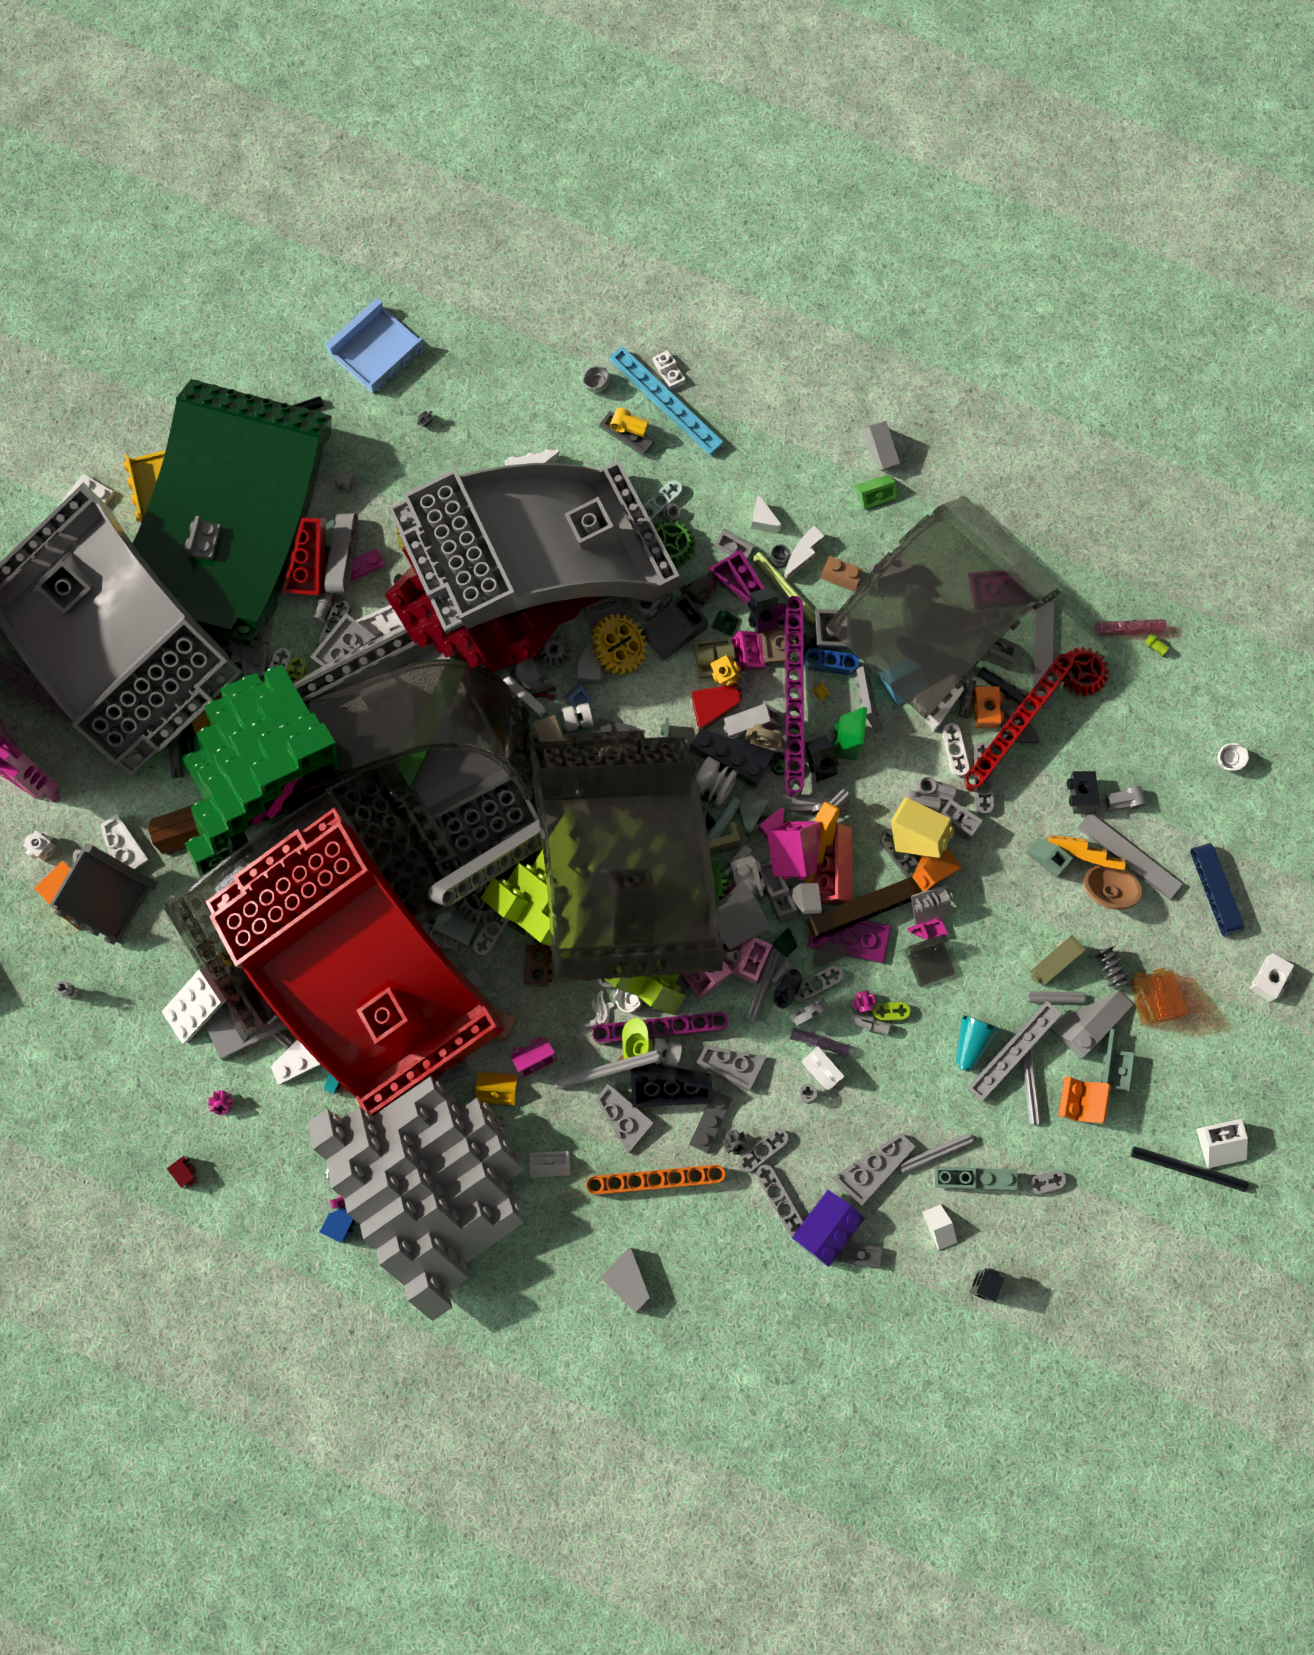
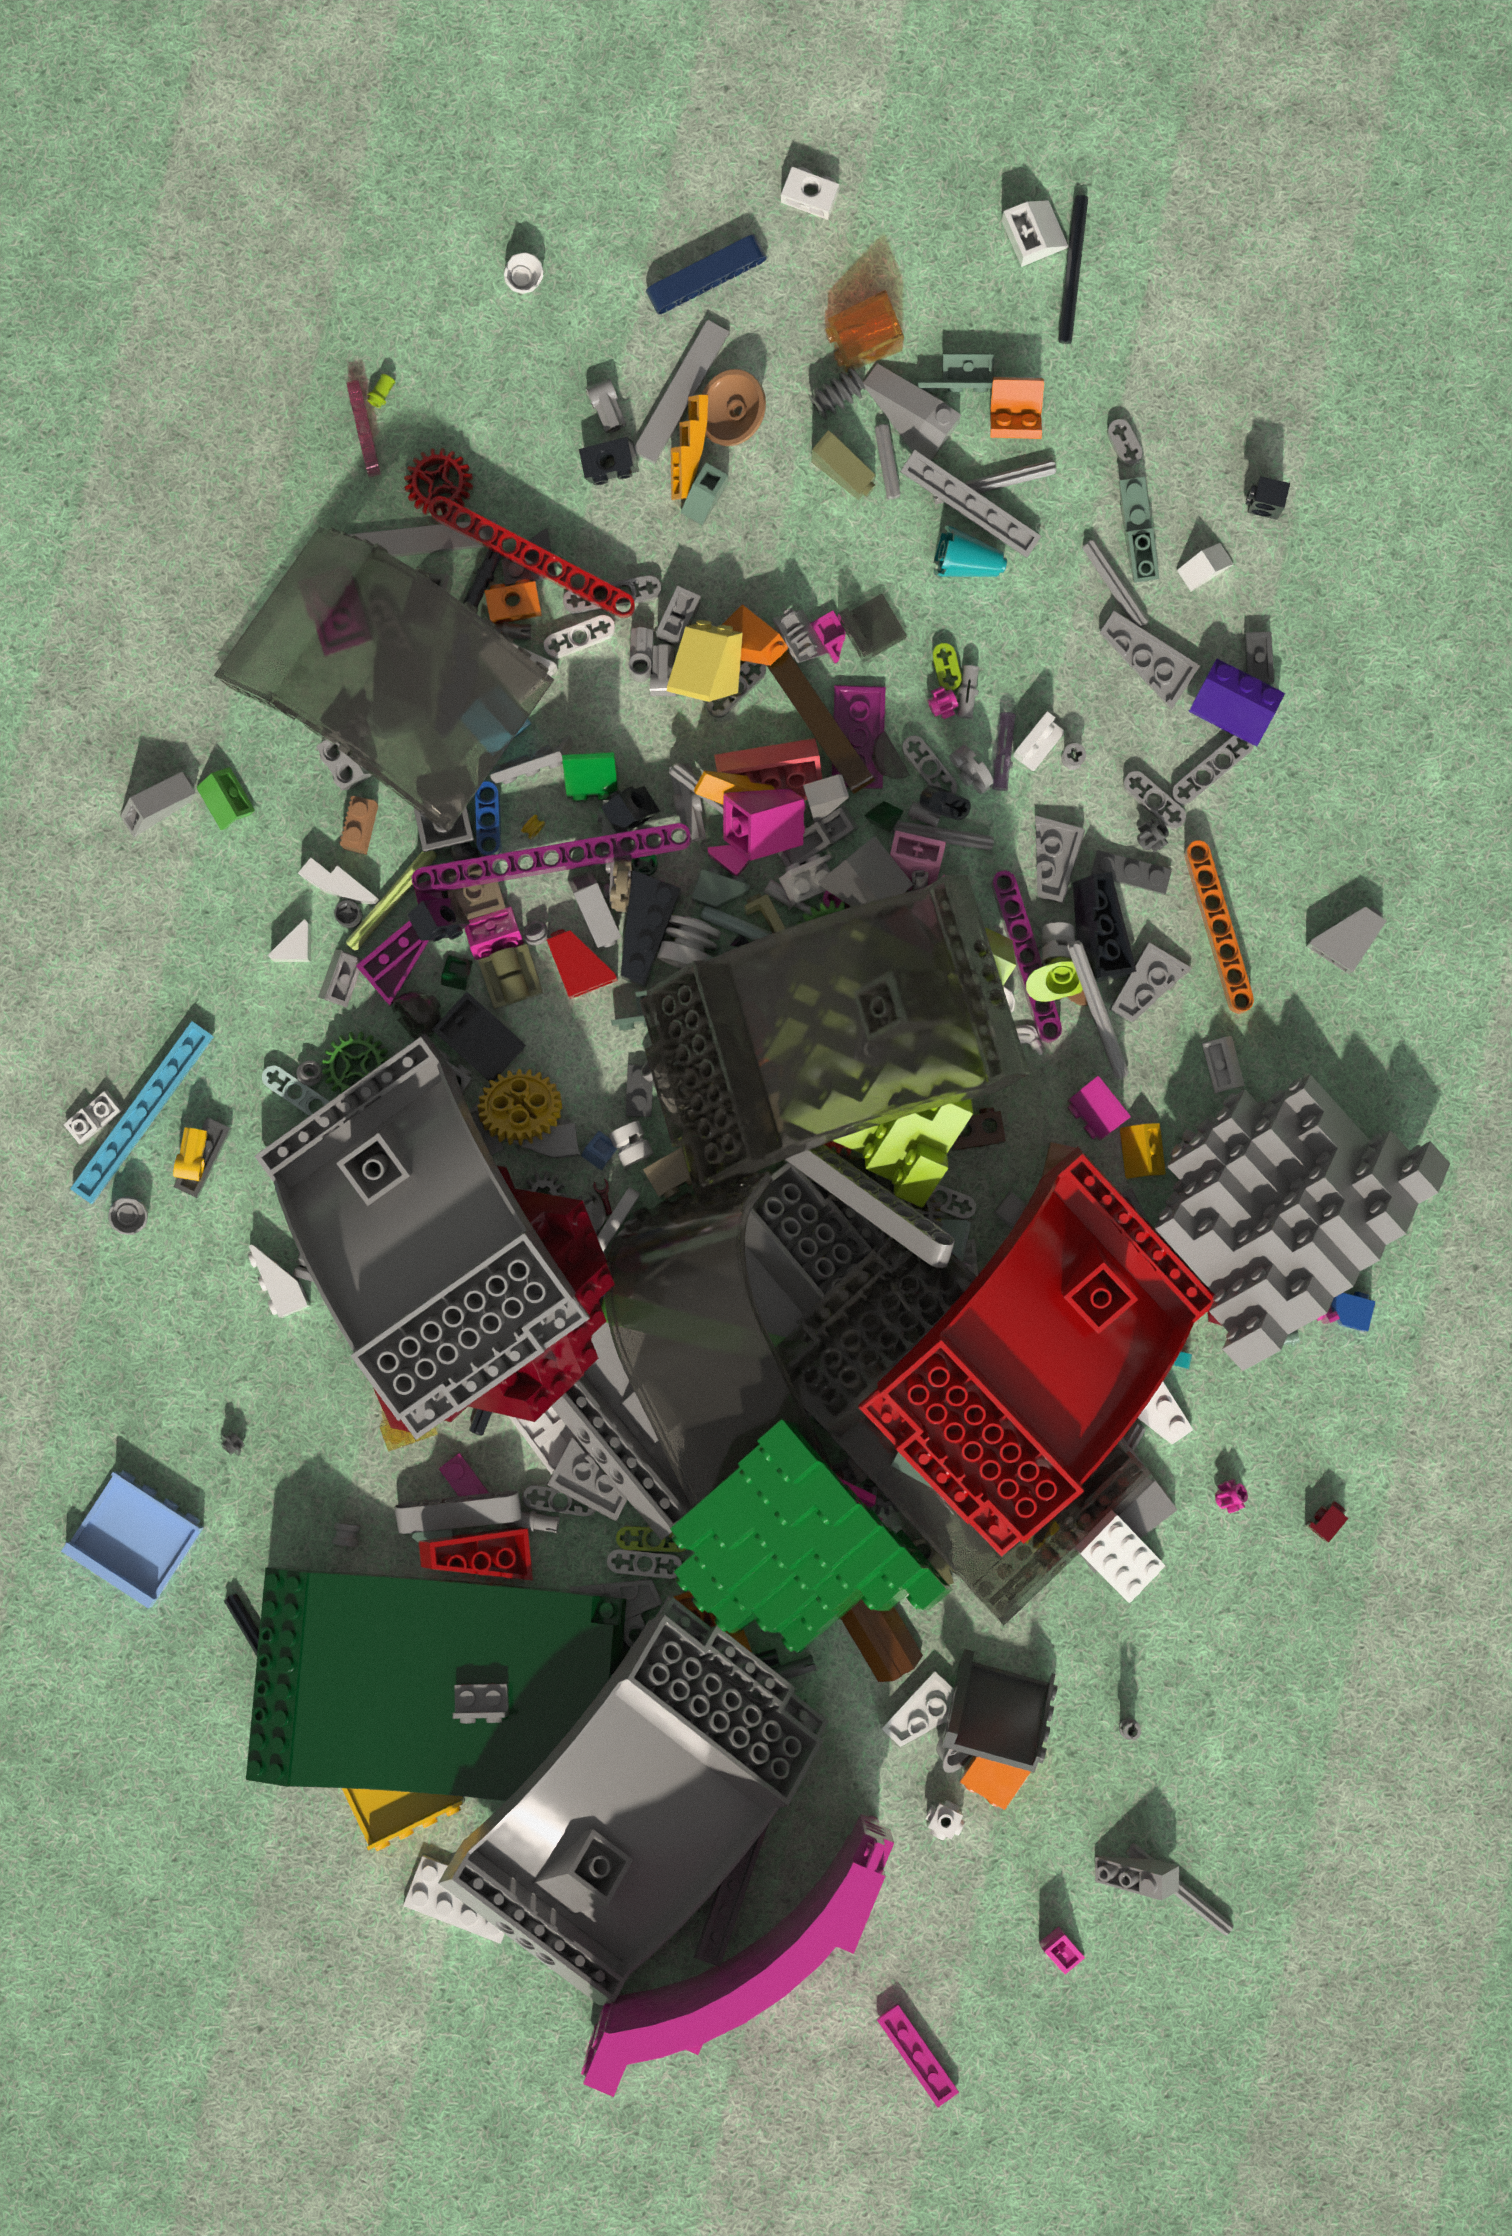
camera: 95 degrees left, 10 degrees up
(726, 671) = (534, 955): yellow brick -> none

